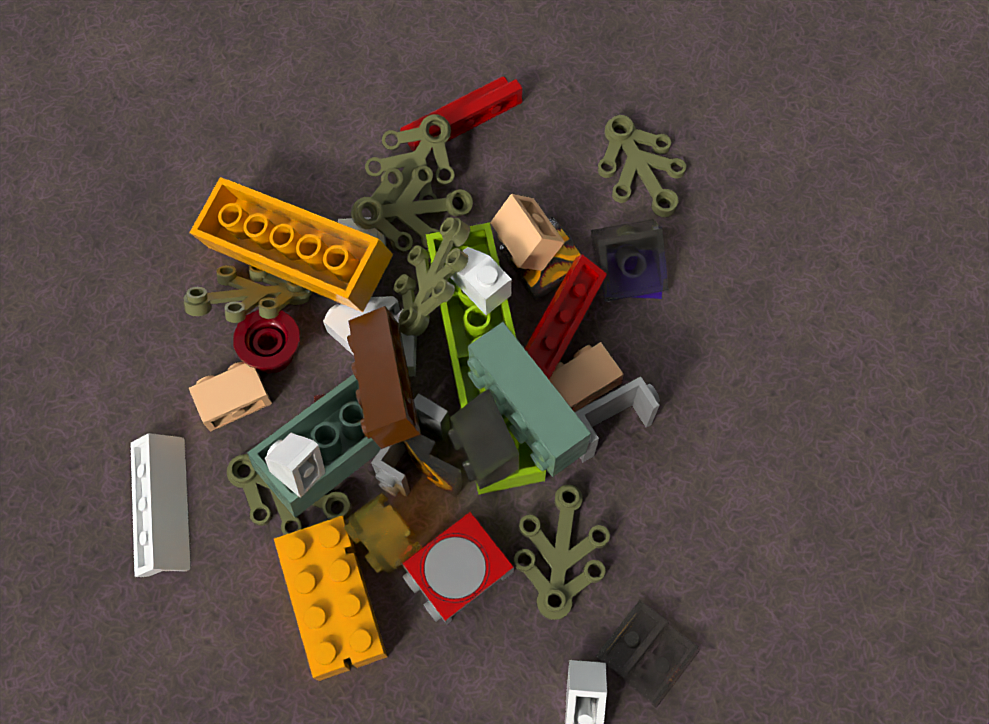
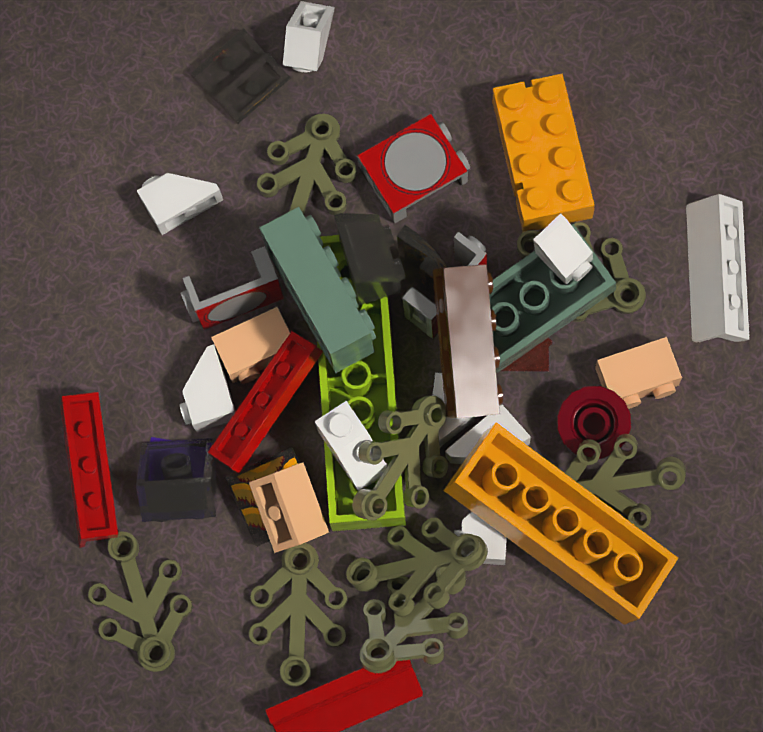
camera: 165 degrees left, 5 degrees up
(383, 534) = (484, 201): clear yellow brick -> none
(509, 176) = (298, 607): none -> olive plant
(616, 328) = (207, 394): none -> white slope
(686, 509) = (177, 199): none -> white slope
(709, 255) = (88, 467): none -> red panel

